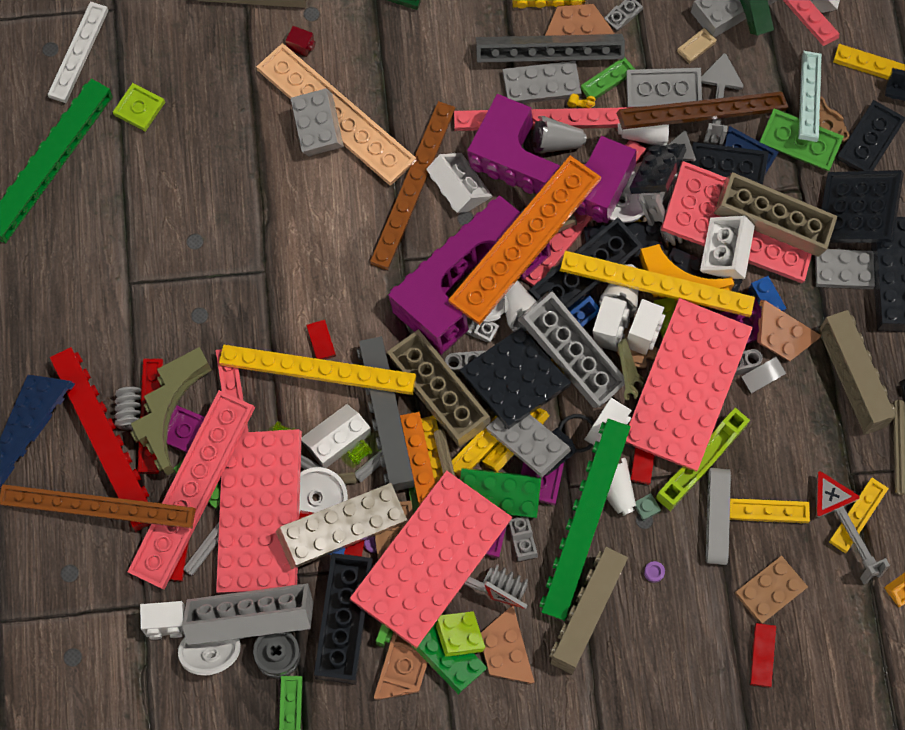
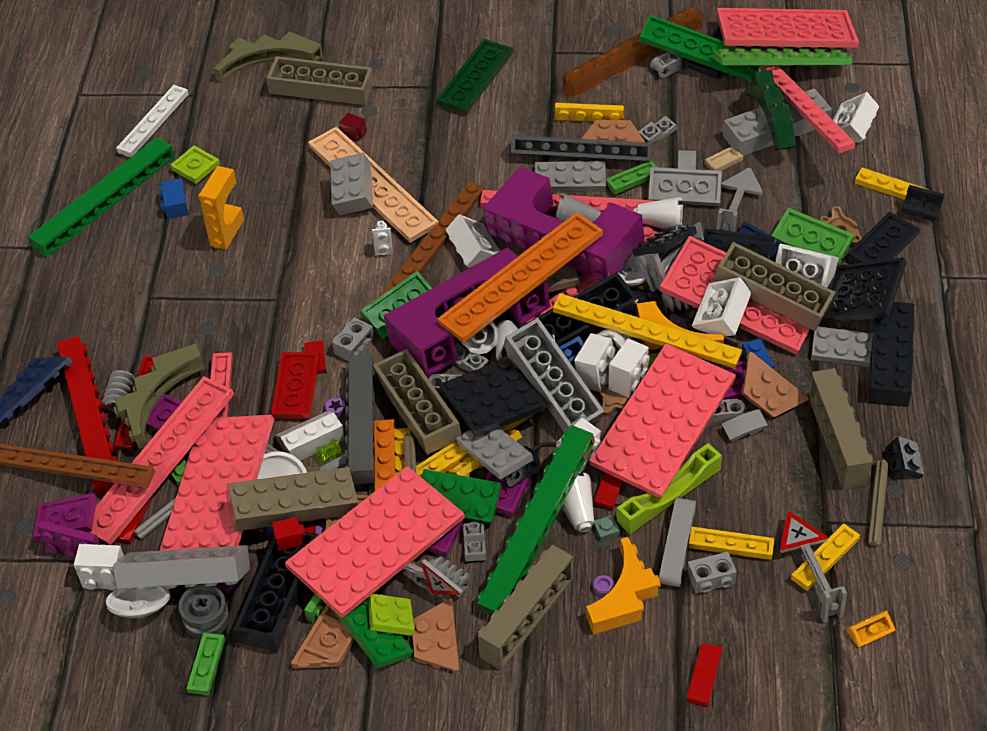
camera: 15 degrees right, 20 degrees down
(111, 564) = (69, 512): none -> magenta plate
(127, 596) = (64, 539): none -> magenta plate
(128, 156) = (174, 198): none -> blue brick
(187, 175) = (220, 219): none -> light orange arch
(309, 396) = (295, 385): none -> red plate
(318, 369) = (304, 373): yellow plate -> none
(346, 565) = (288, 533): none -> red brick
(354, 398) = (336, 405): none -> medium lavender tile
(360, 317) = (353, 339): none -> light grey brick
(364, 191) = (382, 239): none -> white hinge
(394, 266) = (400, 294): none -> green plate
(574, 101) = (598, 191): yellow arm -> none
(629, 370) = (606, 400): olive flag -> none
(660, 54) = (686, 159): none -> light grey slope
(684, 569) = (624, 602): none -> light orange arch
(701, 110) = (713, 198): reddish brown plate -> none
(753, 543) = (709, 568): none -> light grey brick
(771, 590) = (723, 615): medium nougat plate -> none
(799, 179) = (810, 264): none -> white slope
(810, 96) = (825, 202): light aqua tile -> none

